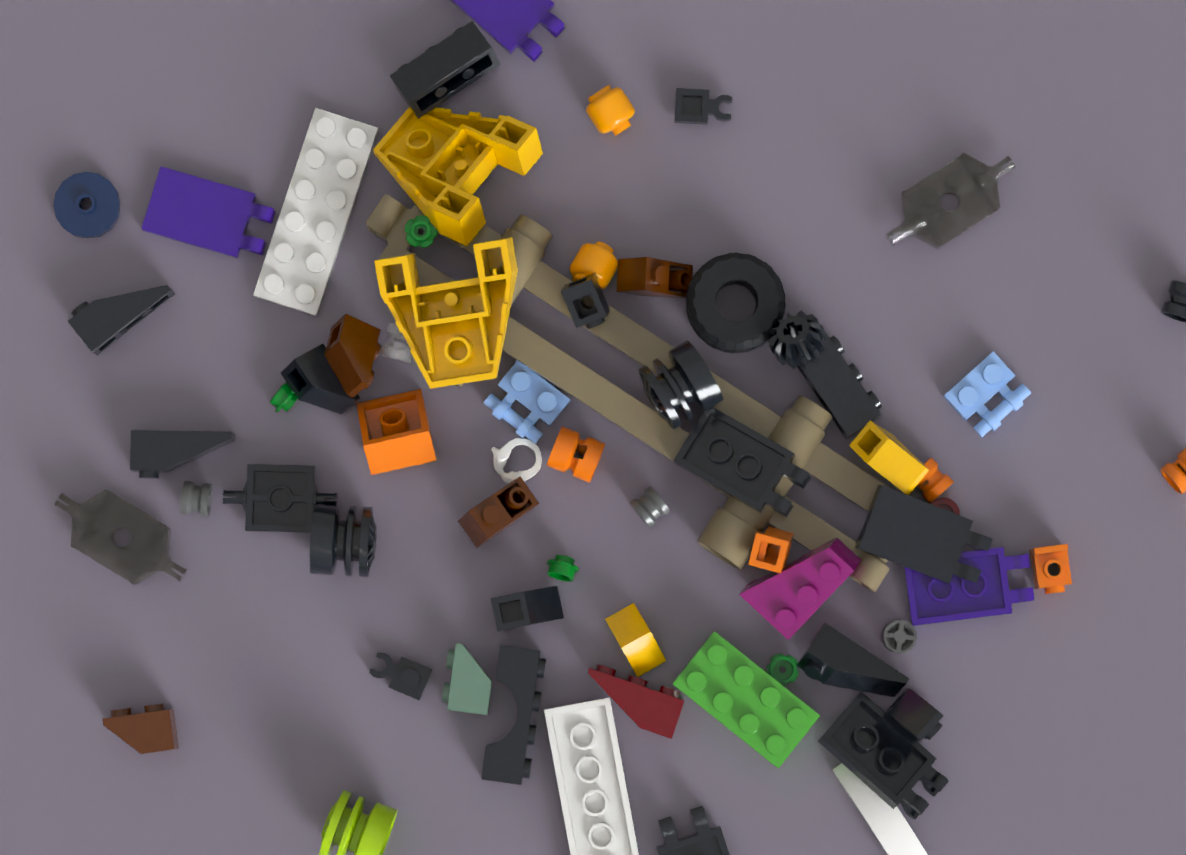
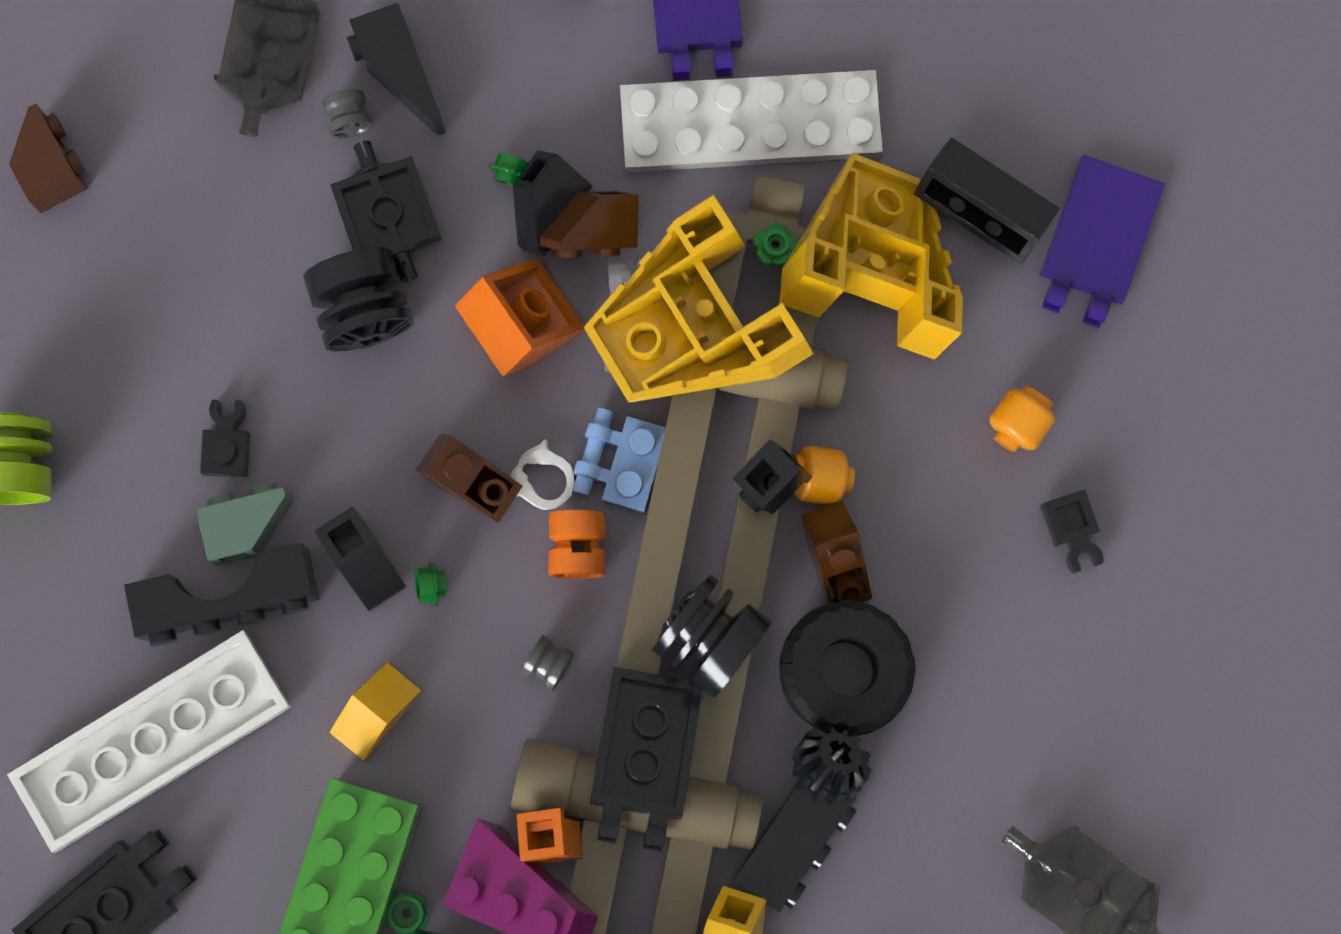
camera: 65 degrees right, 5 degrees down
(646, 707) = (293, 757): dark red slope -> none

